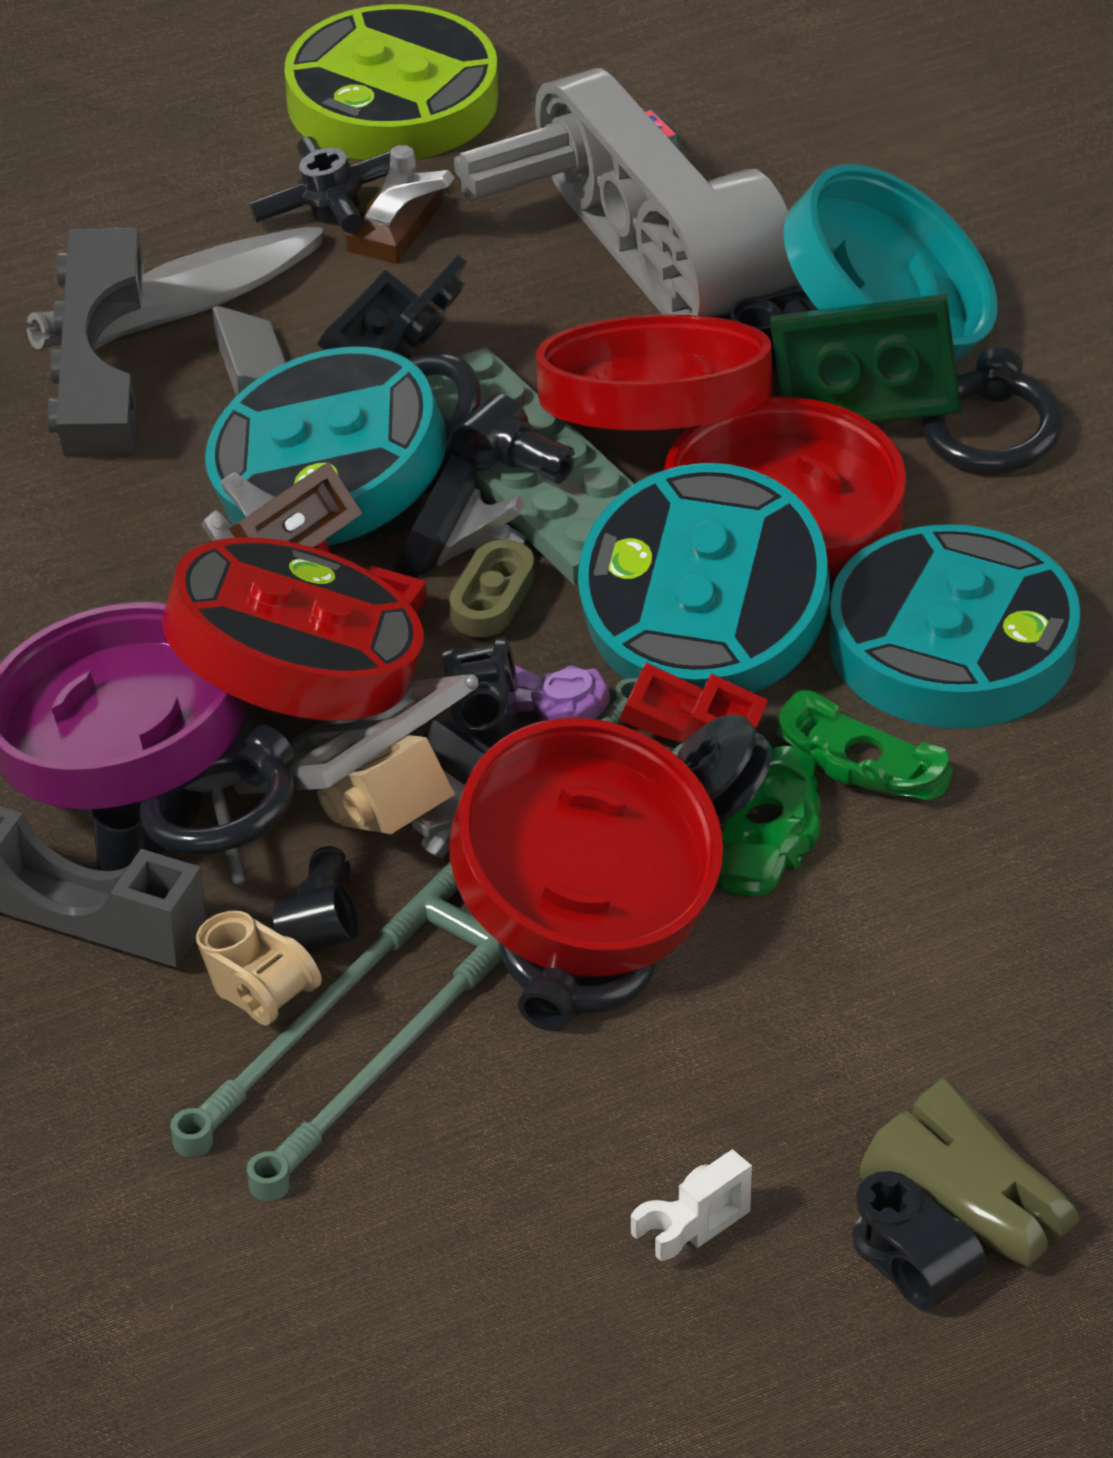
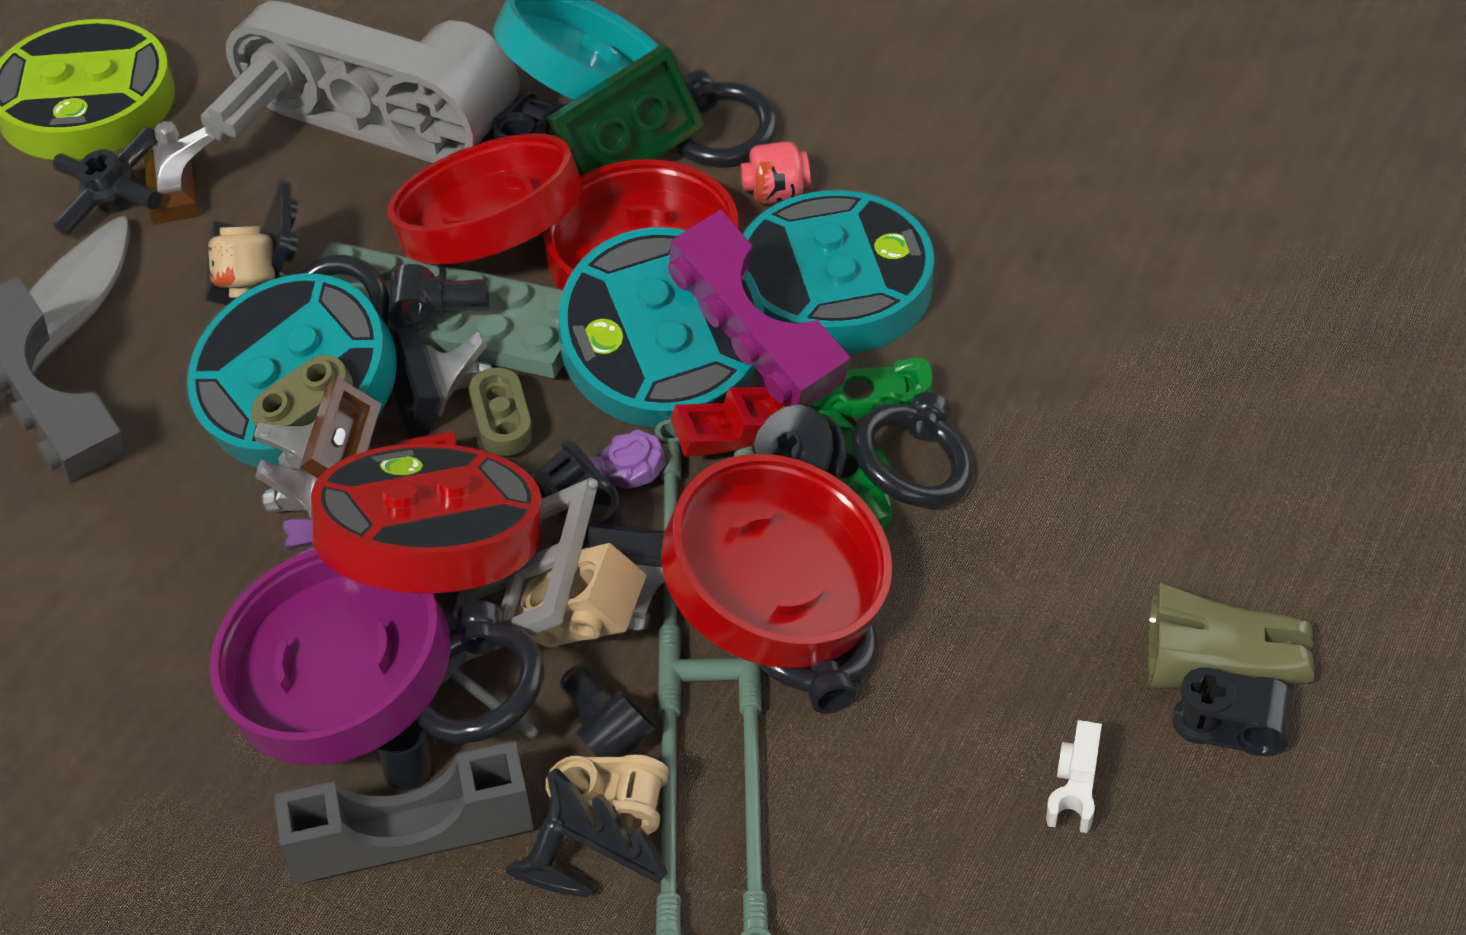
camera: 35 degrees left, 5 degrees up
(210, 983) = (572, 817): none -> black piece
(246, 346) = (153, 335): light grey slope -> none
(283, 465) = (298, 393): none -> olive plate
(363, 313) = (240, 259): none -> tan head
(795, 672) = (794, 358): none -> magenta arch
(892, 813) = (925, 420): none -> black piece
(992, 495) = (775, 172): none -> coral head

